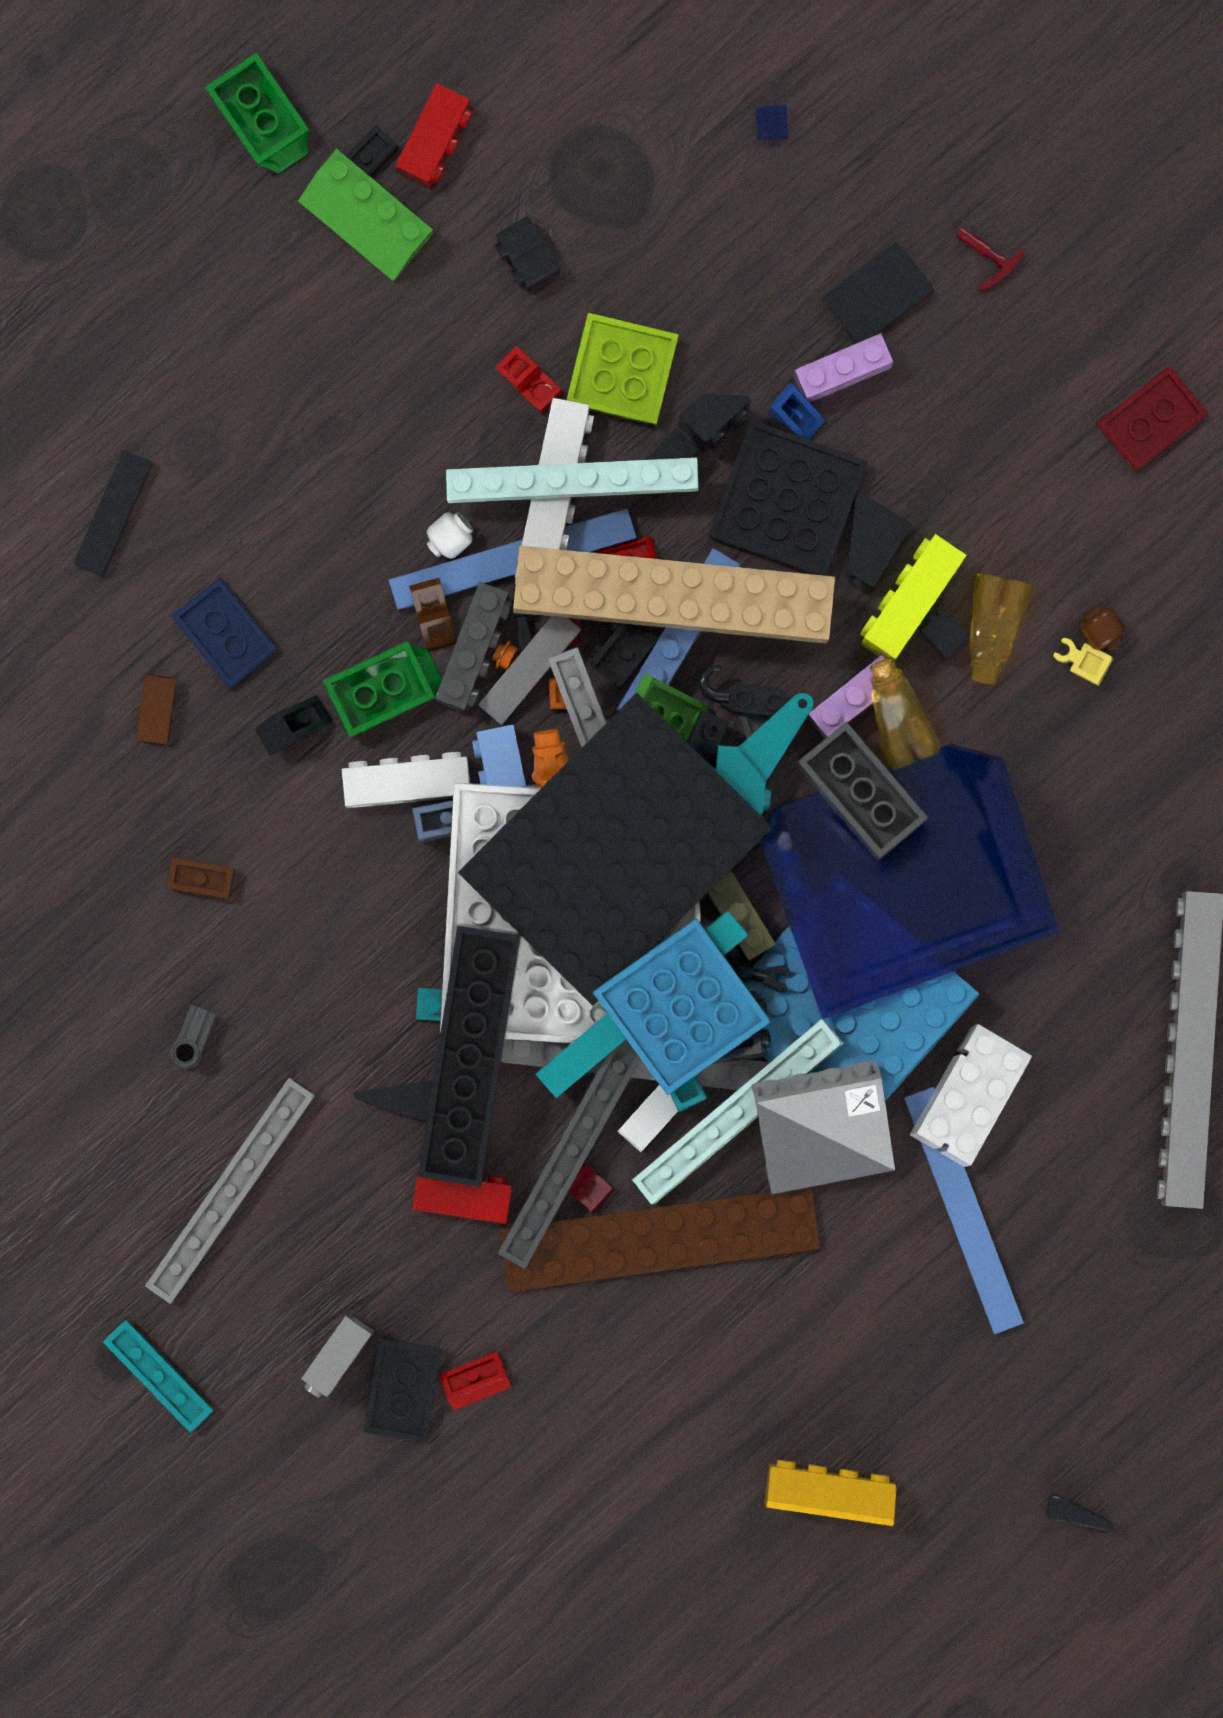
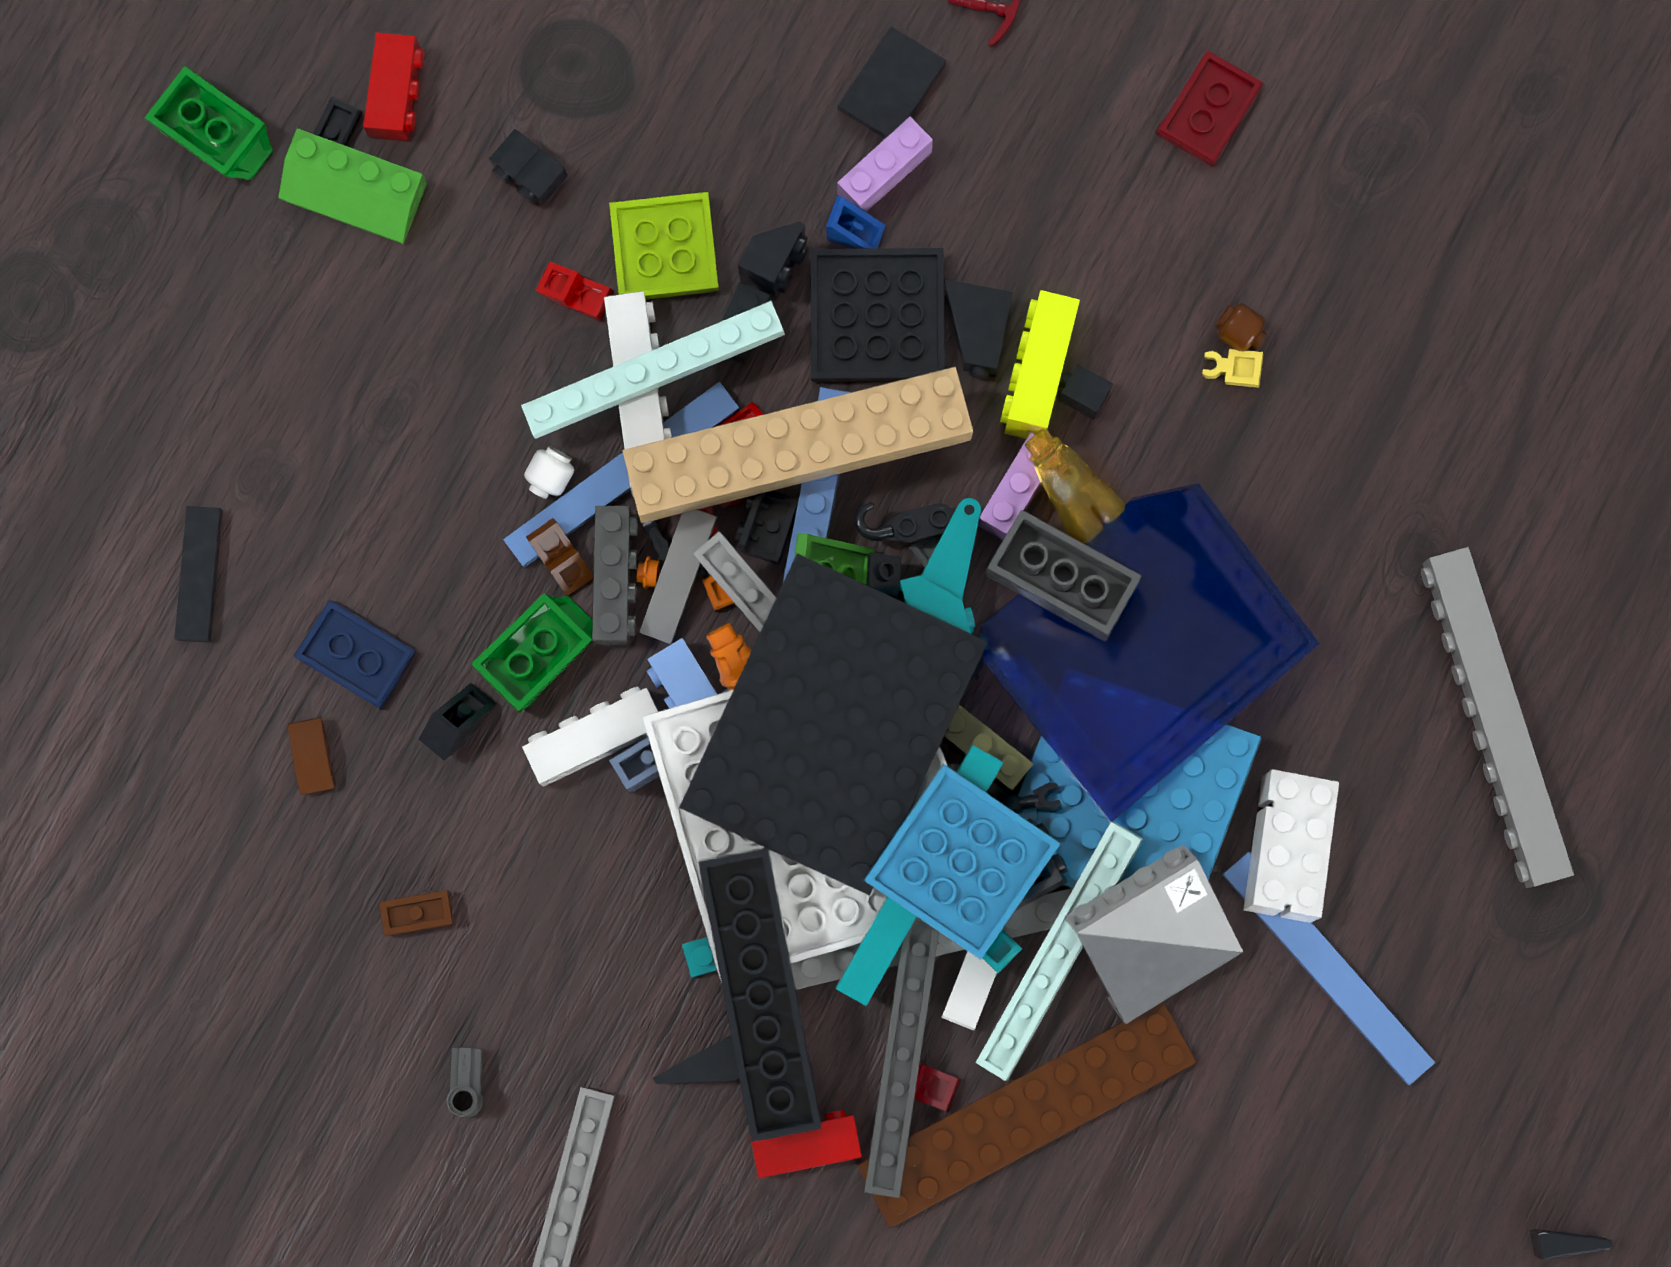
camera: 15 degrees left, 5 degrees down
(996, 616) = (1131, 361): clear yellow piece -> none

